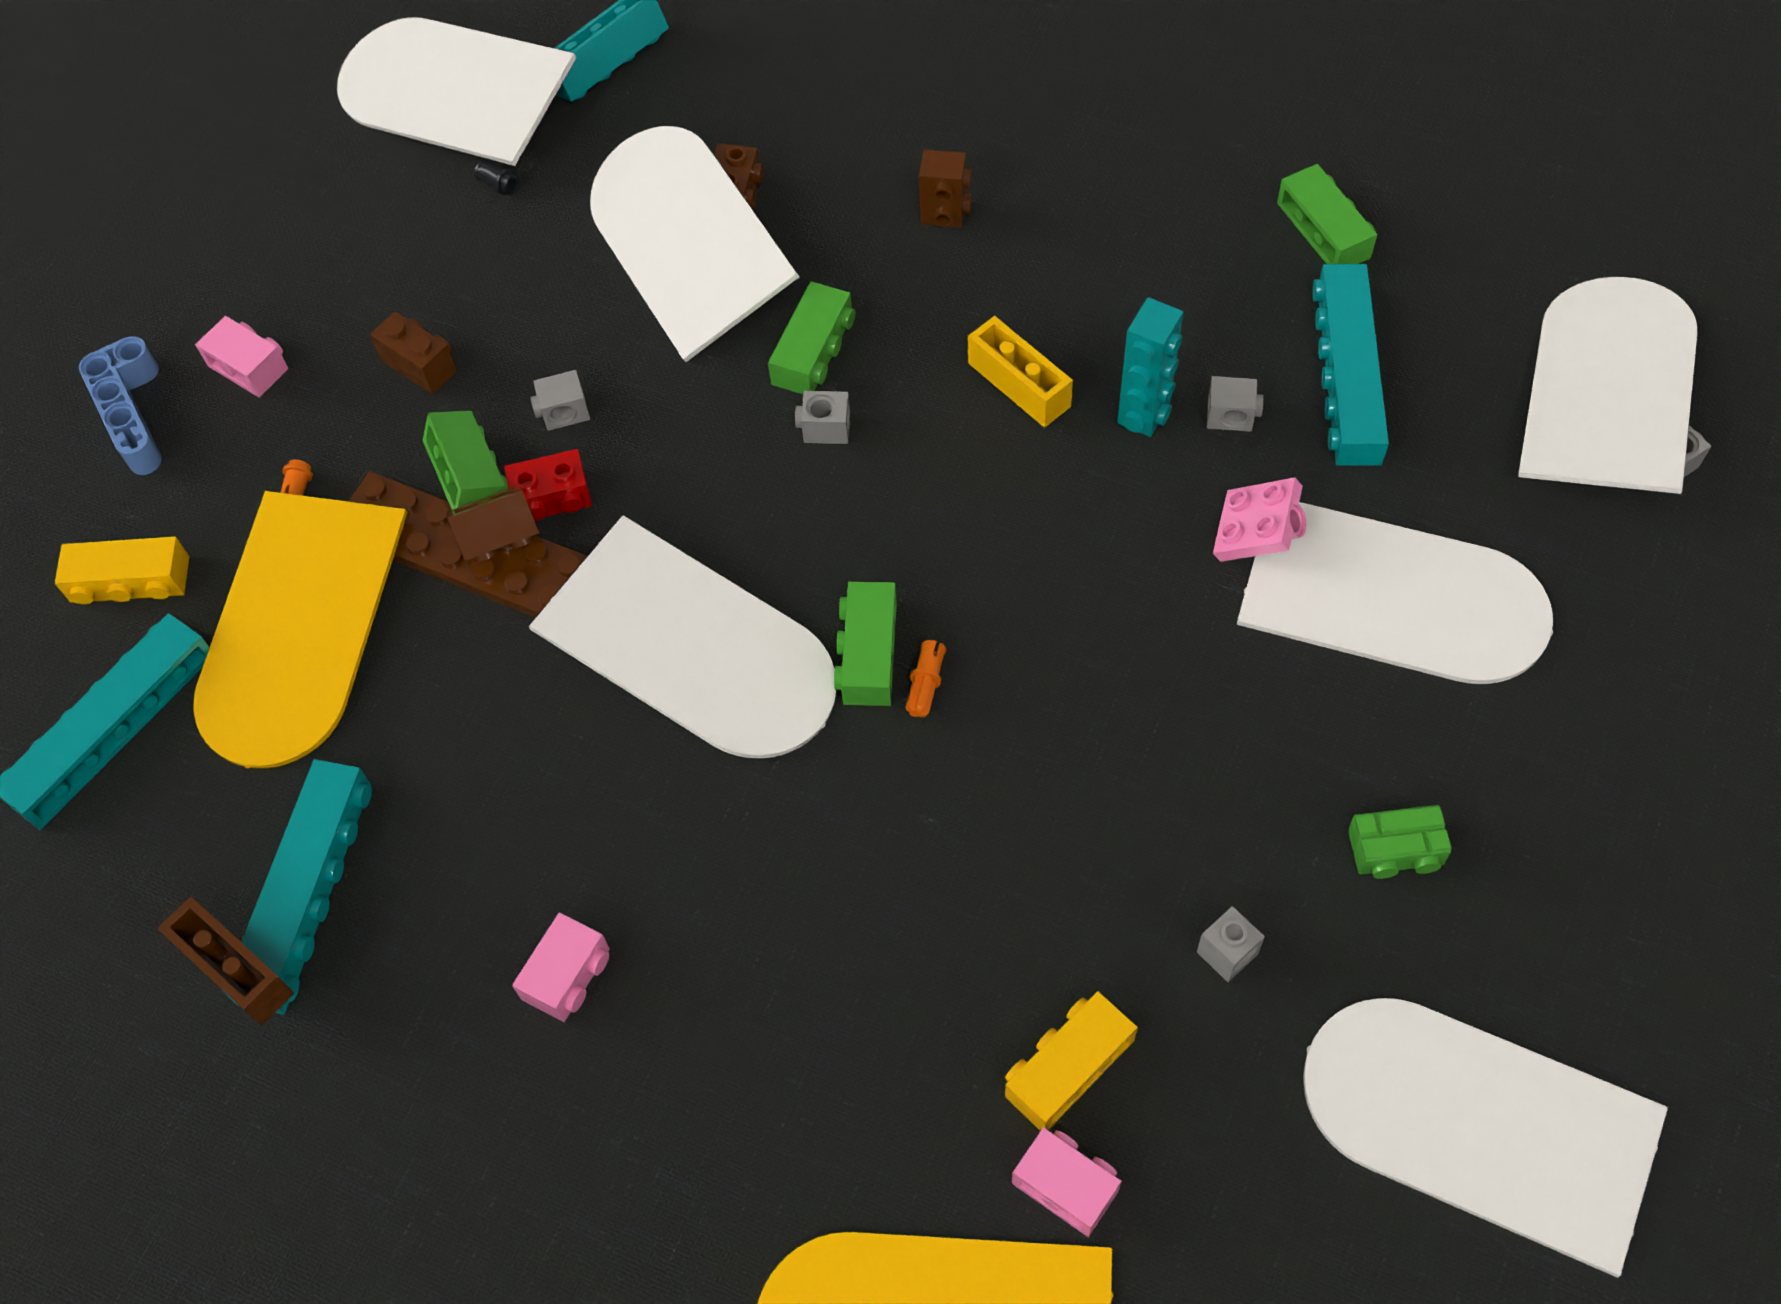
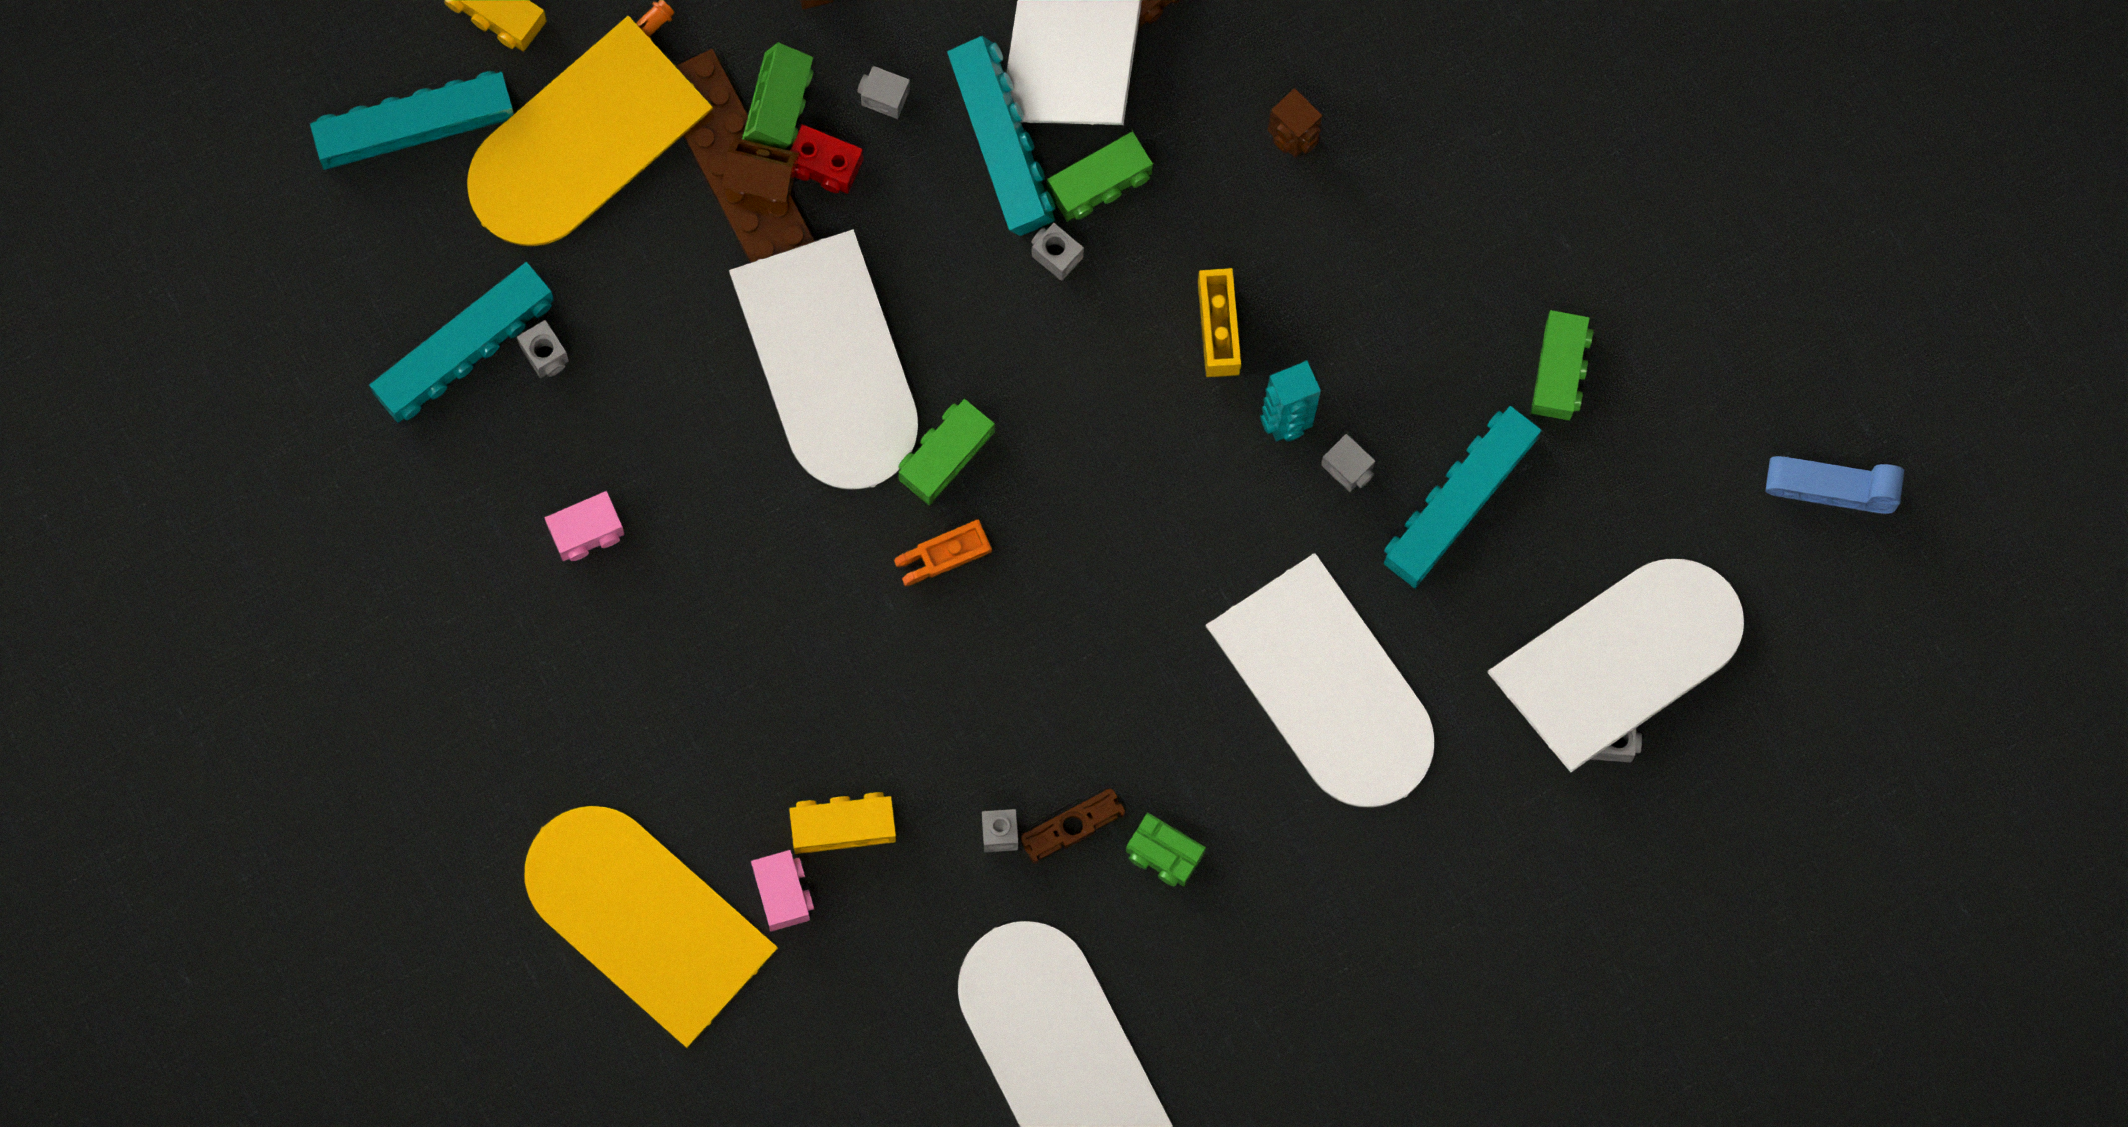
camera: 30 degrees right, 15 degrees up
(226, 960) = (383, 372): reddish brown brick -> none
(381, 820) = (541, 336): none -> light grey brick
(697, 362) = (1001, 135): none -> teal brick
(925, 678) = (963, 506): orange axle -> none
(944, 730) = (946, 552): none -> orange hinge
(1260, 520) = (1280, 567): bright pink plate -> none
(1297, 863) = (1051, 835): none -> reddish brown piece
(1632, 150) = (1836, 485): none -> medium blue beam

